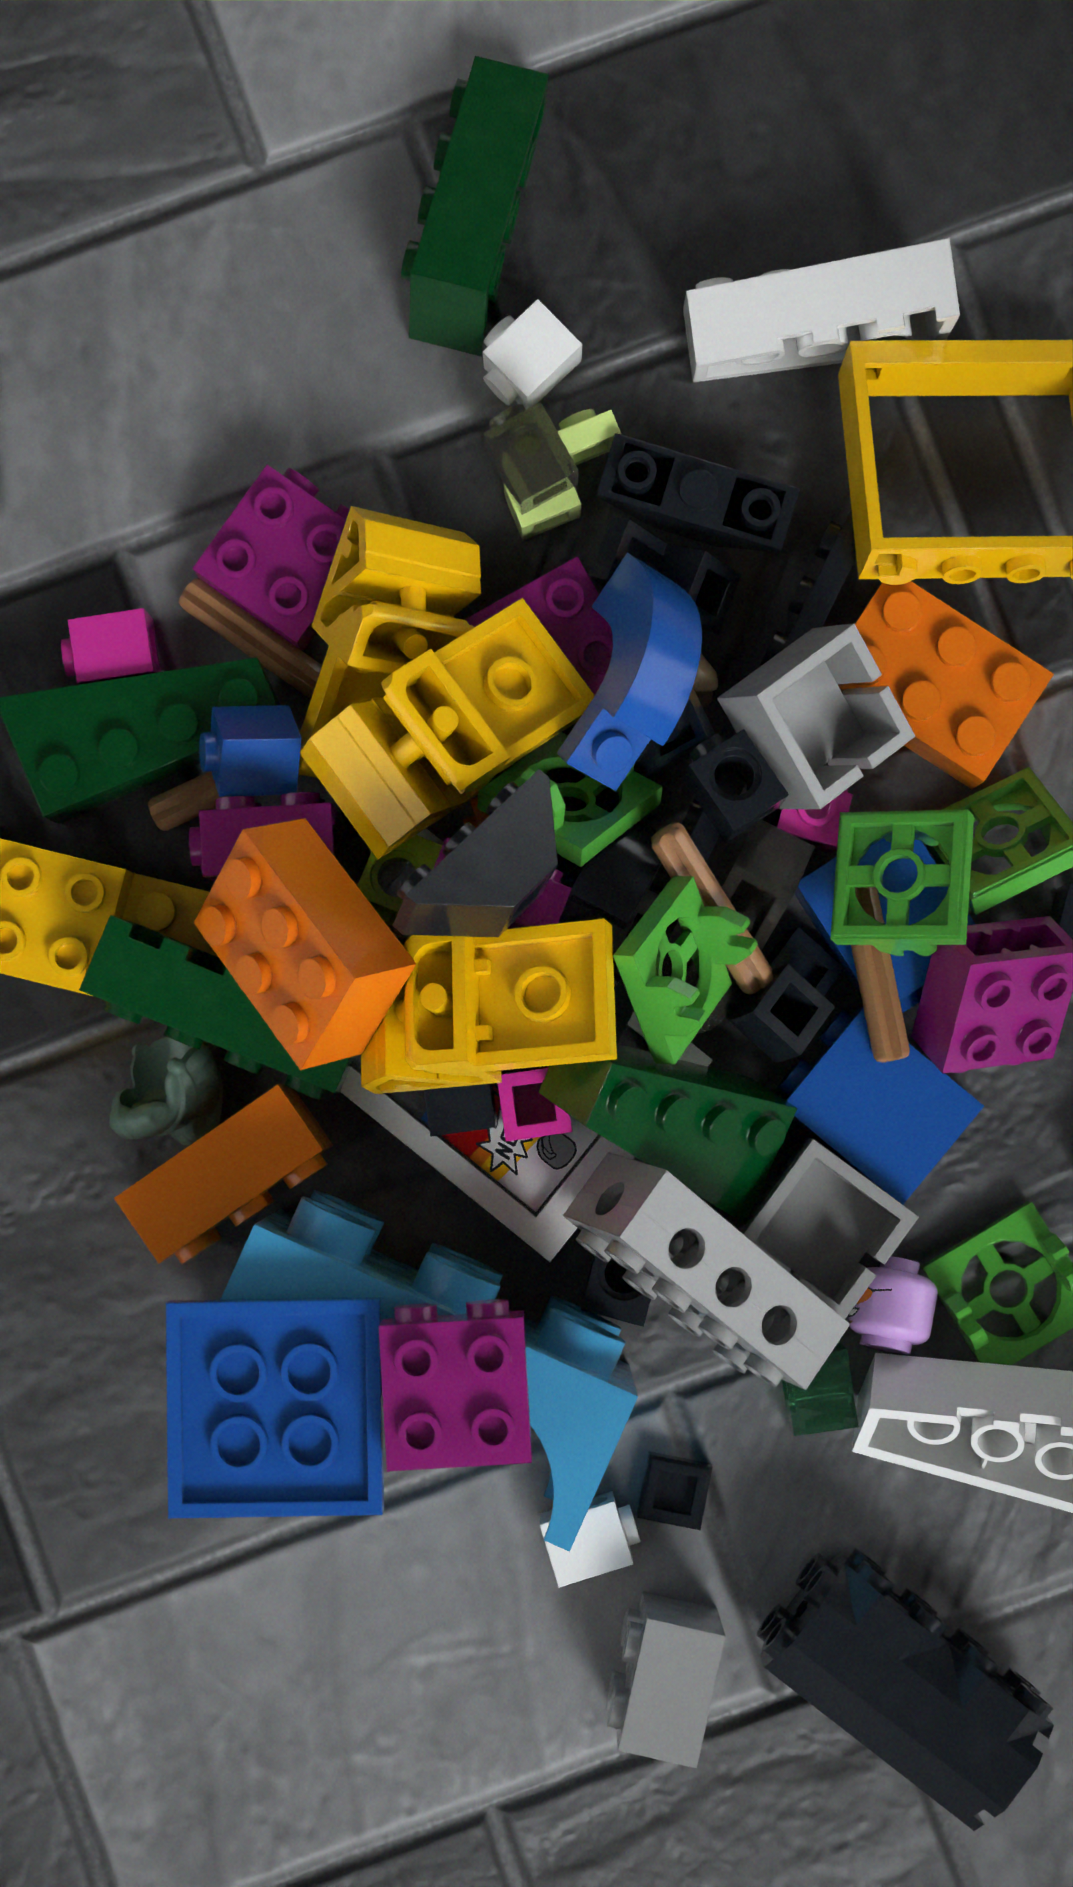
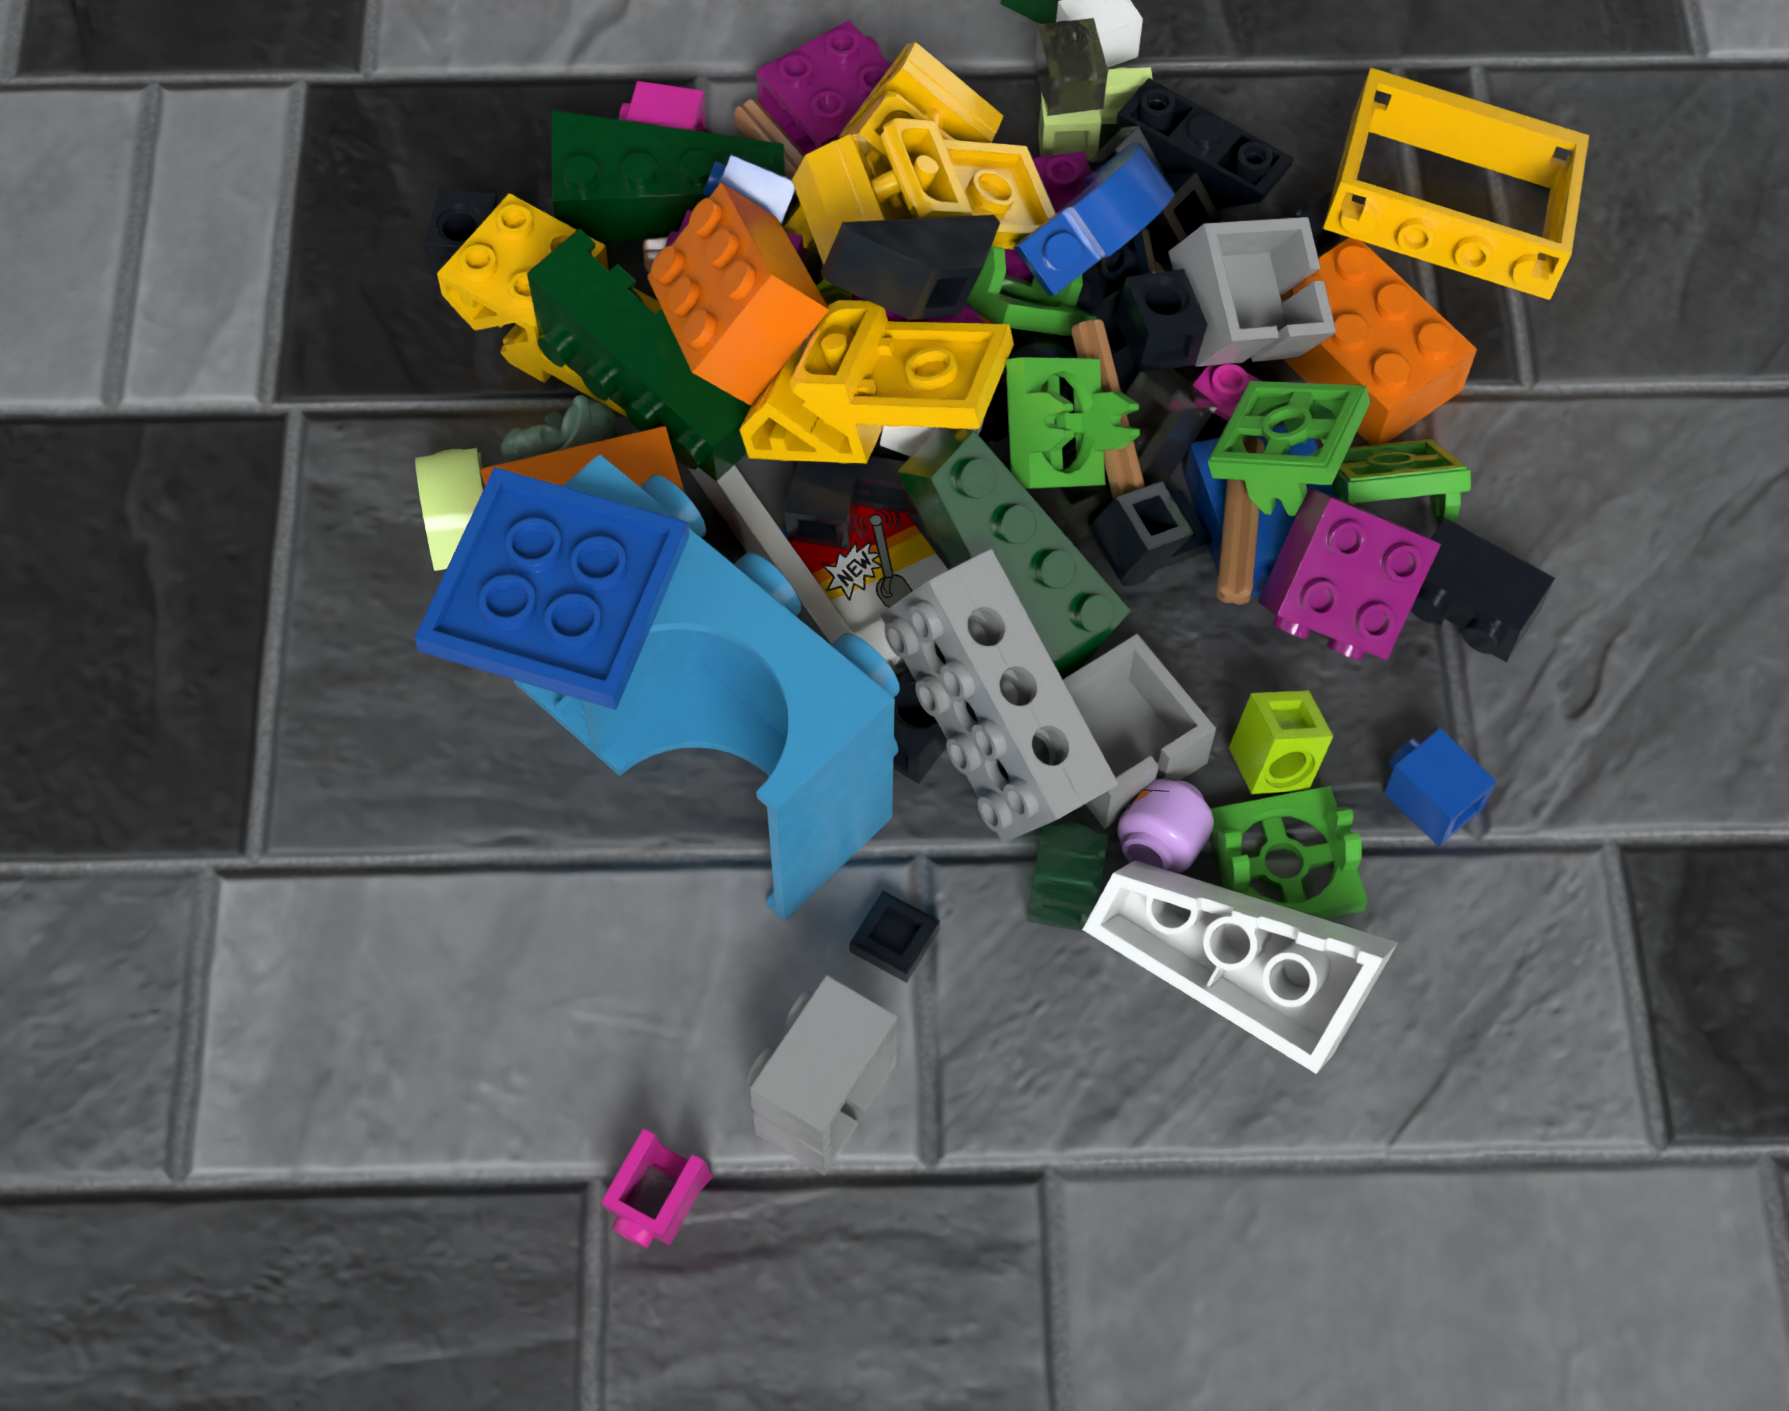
camera: 15 degrees right, 25 degrees down
(81, 1193) = (448, 493): none -> yellowish green brick
(455, 1387) = (726, 610): magenta brick -> none
(528, 1112) = (886, 523): dark pink brick -> none
(553, 1817) = (654, 1191): none -> dark pink window
(599, 1545) = (794, 939): white brick -> none
(816, 310) = (1324, 53): white wedge -> none
(874, 1115) = (1213, 646): blue brick -> none
(905, 1687) = (1061, 1162): black brick -> none
(977, 1186) = (1280, 741): none -> lime brick

